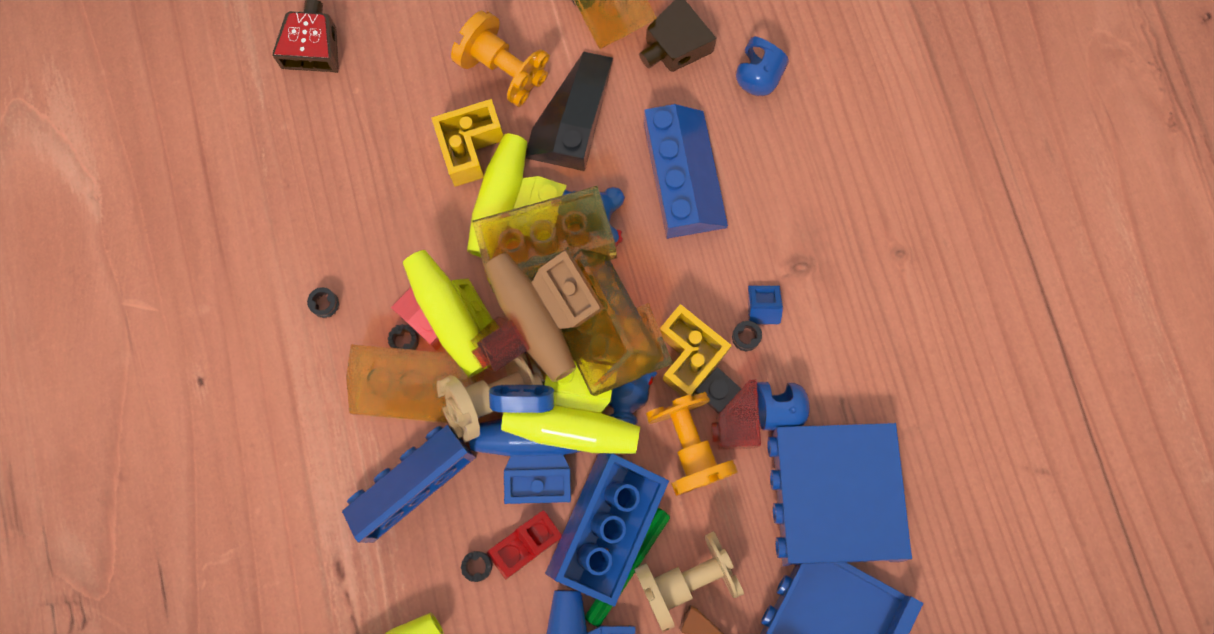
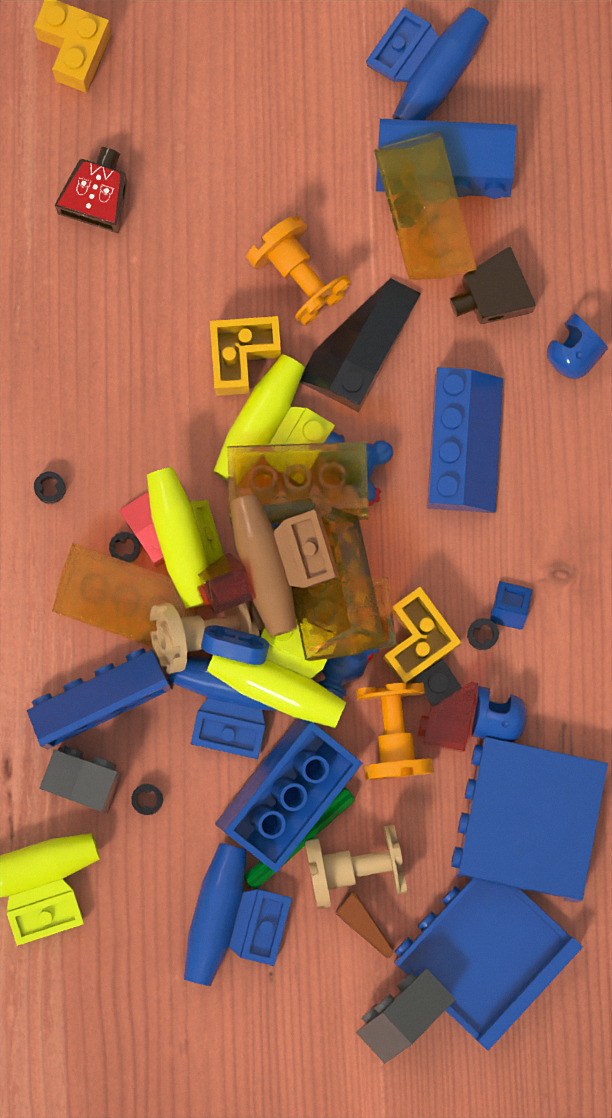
camera: 10 degrees right, 5 degrees up
(408, 565) = (81, 780): none -> dark grey brick
(524, 544) = (200, 790): red slope -> none

